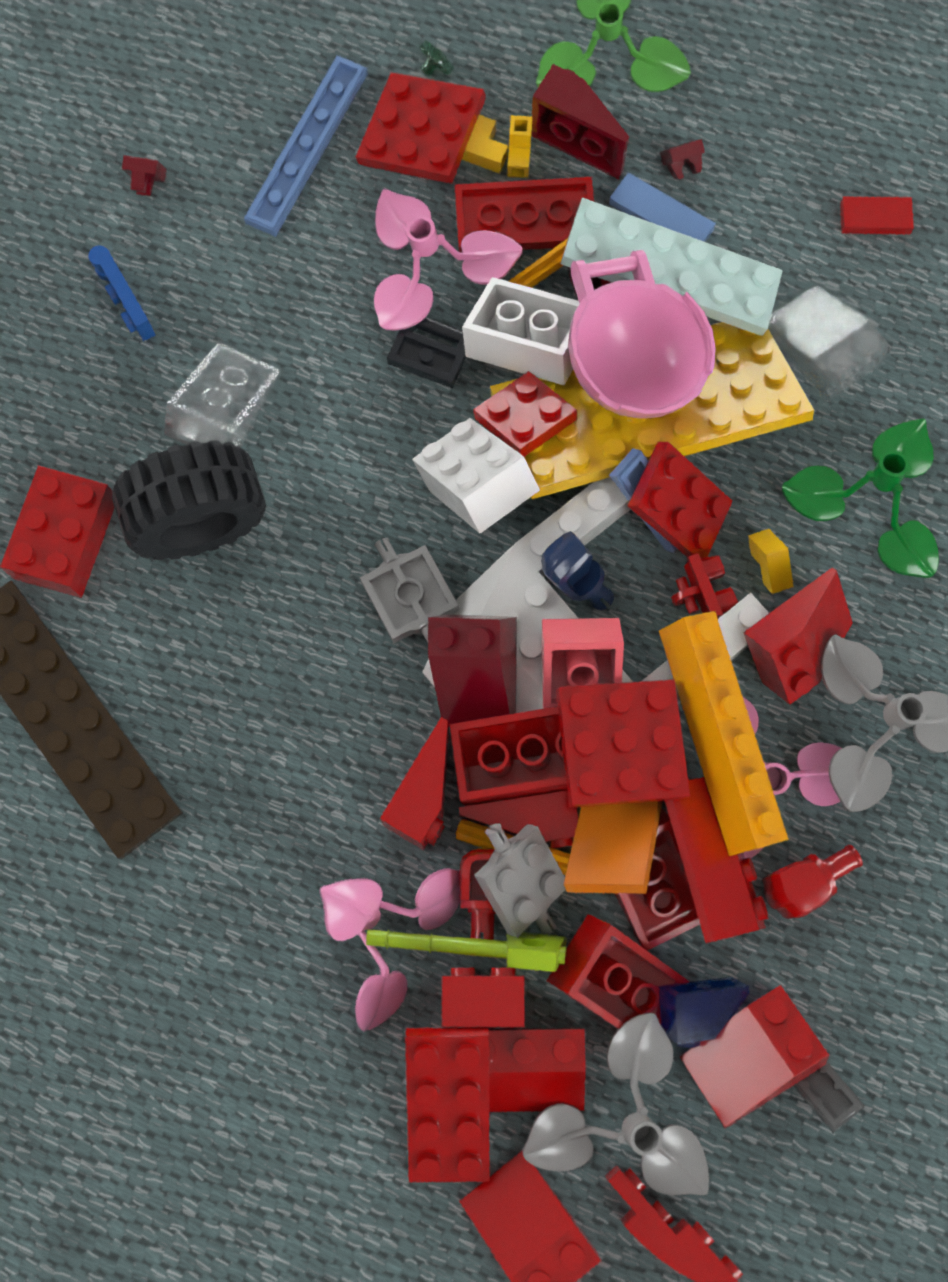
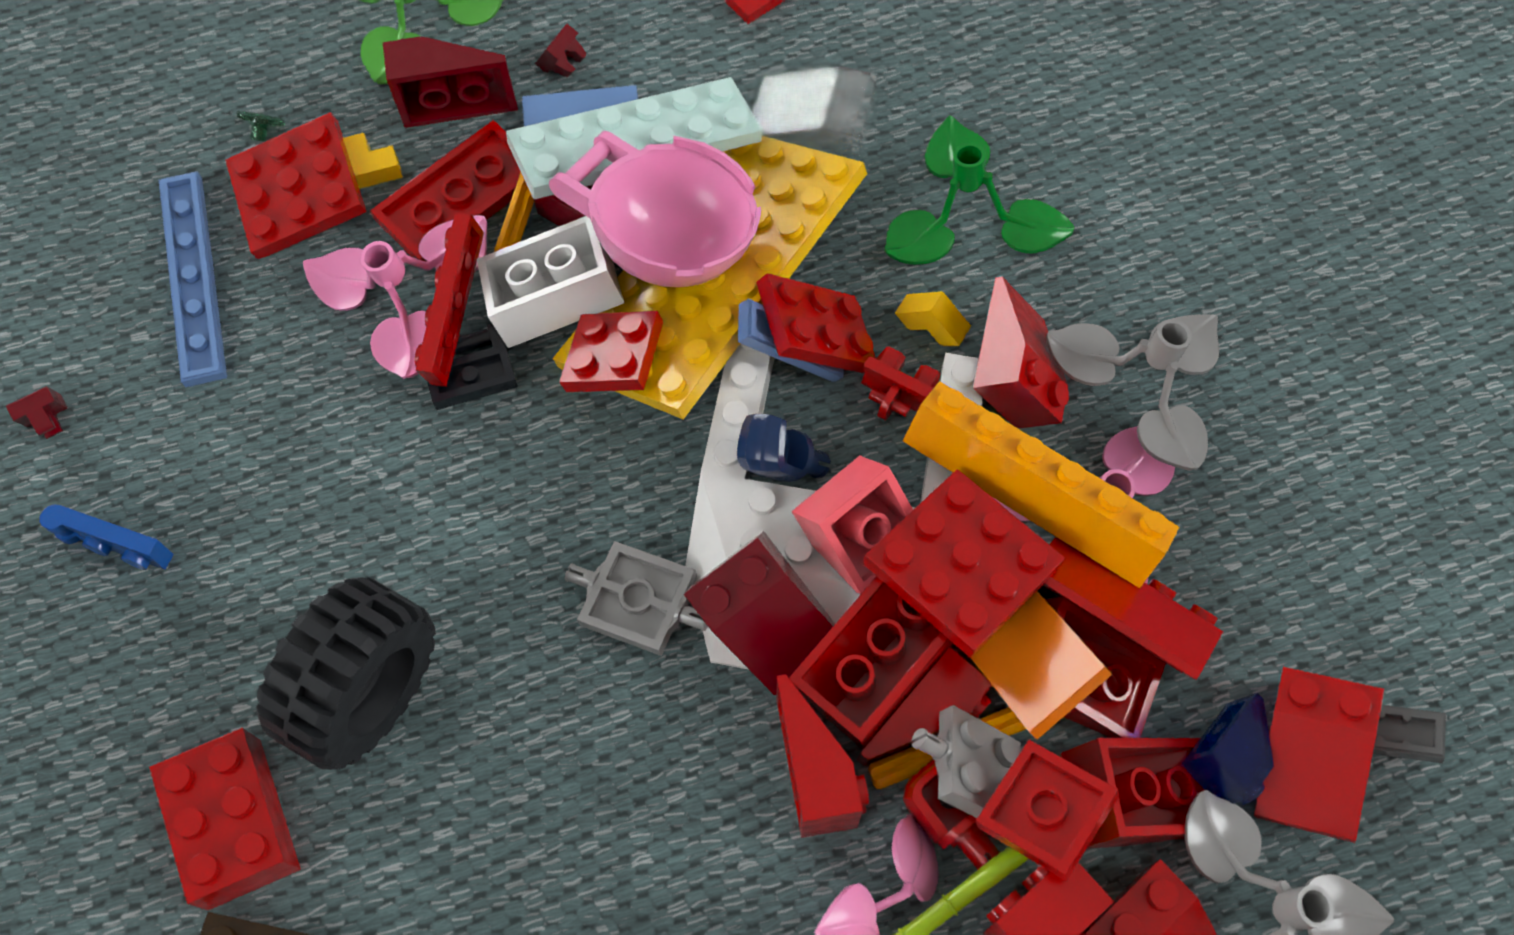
camera: 40 degrees left, 10 degrees down
(220, 398) = (292, 559): clear slope -> none
(450, 294) = (450, 299): none -> red plate
(476, 474) = (612, 436): white brick -> none
(519, 146) = (401, 134): yellow piece -> none
(533, 938) = (1047, 809): none -> red plate
(808, 883) = (1217, 563): red piece -> none

